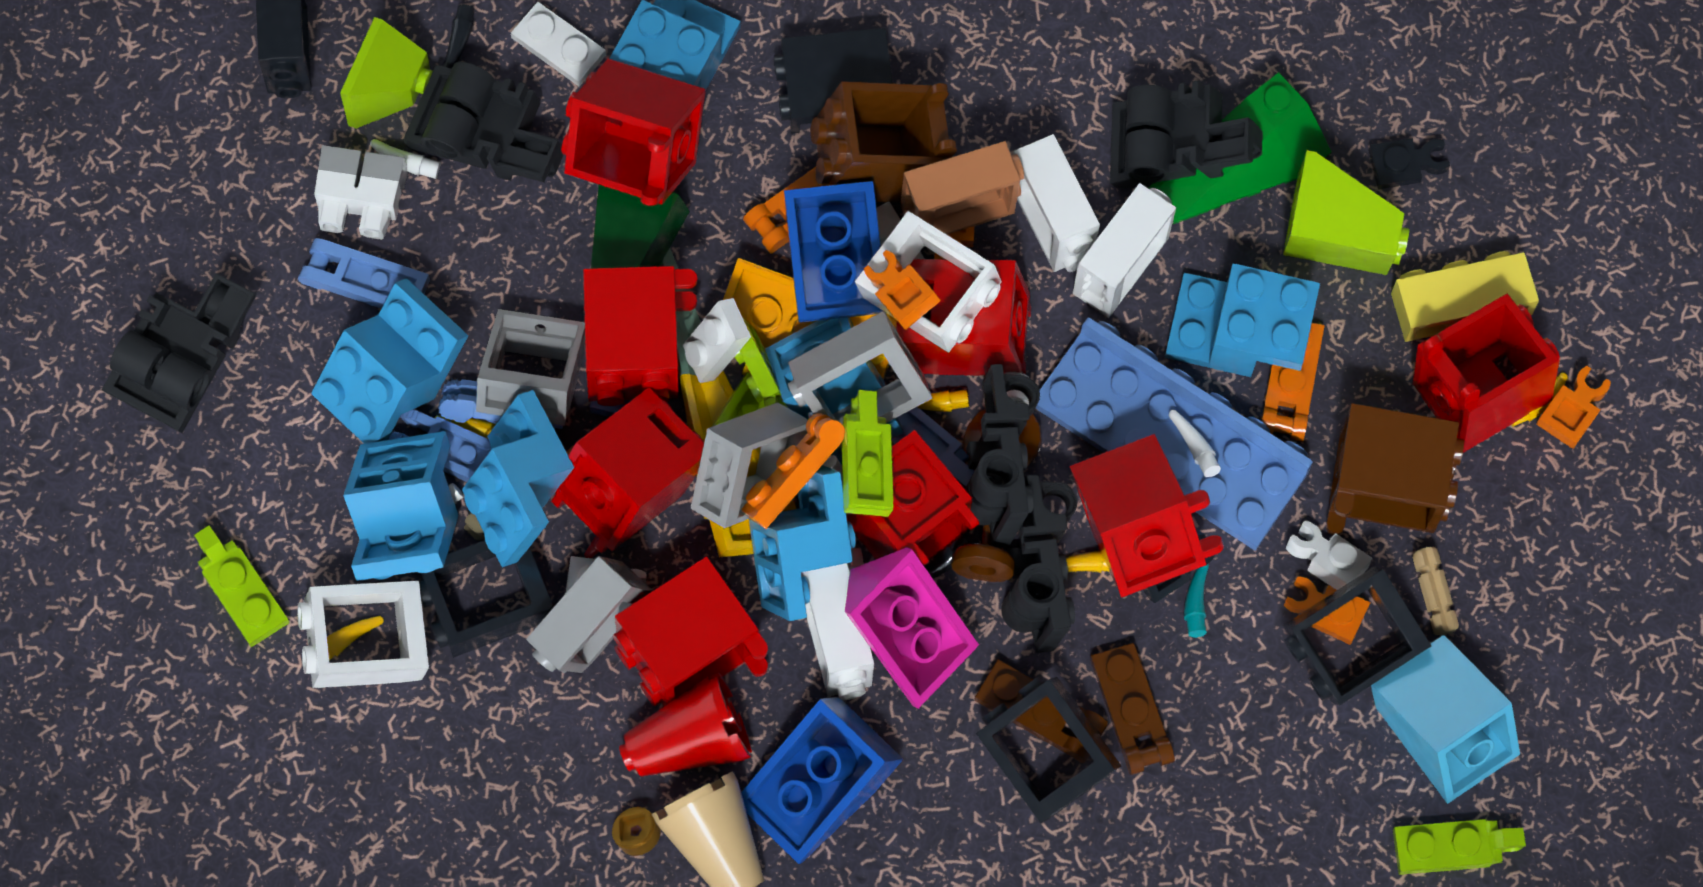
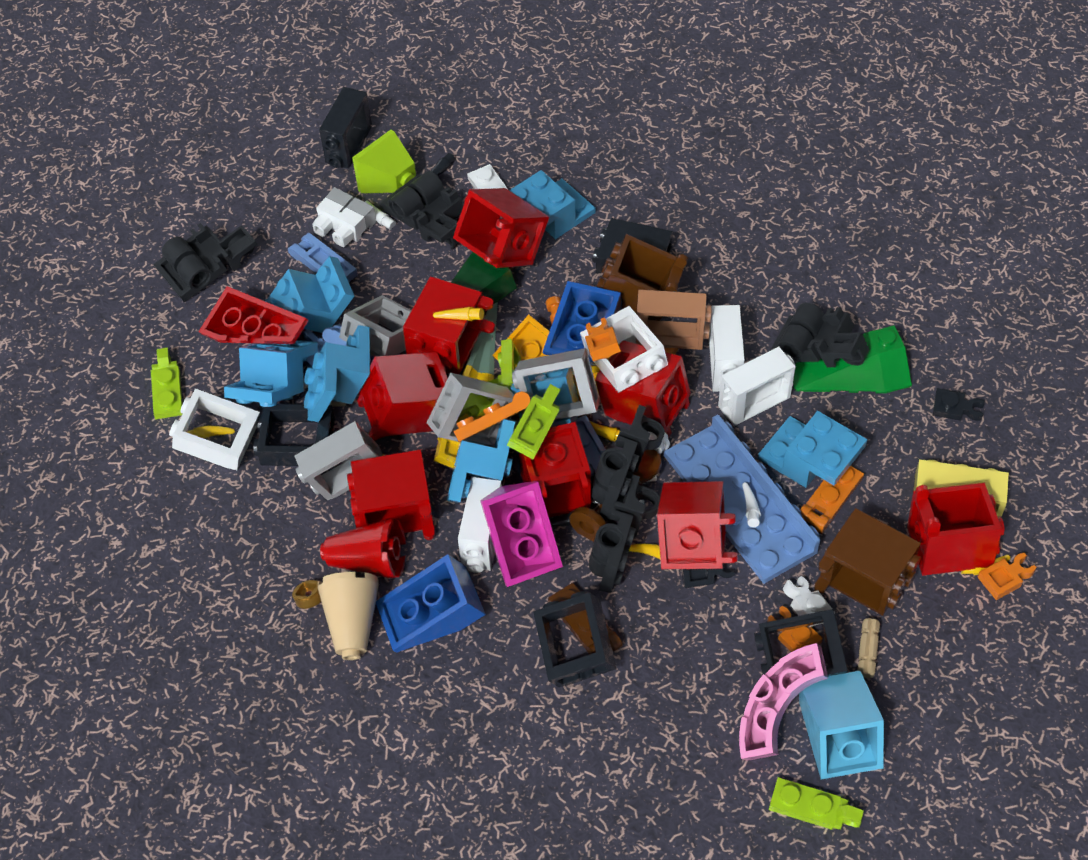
camera: 30 degrees right, 15 degrees down
(320, 440) = (251, 320): none -> red wedge
(665, 317) = (466, 313): none -> yellow helmet
(716, 340) = (492, 348): white plate -> none
(1131, 707) = (641, 641): reddish brown plate -> none
(1194, 605) = (709, 600): teal helmet -> none
(1342, 220) = (897, 415): lime slope -> none
(1351, 721) = (772, 697): none -> bright pink brick

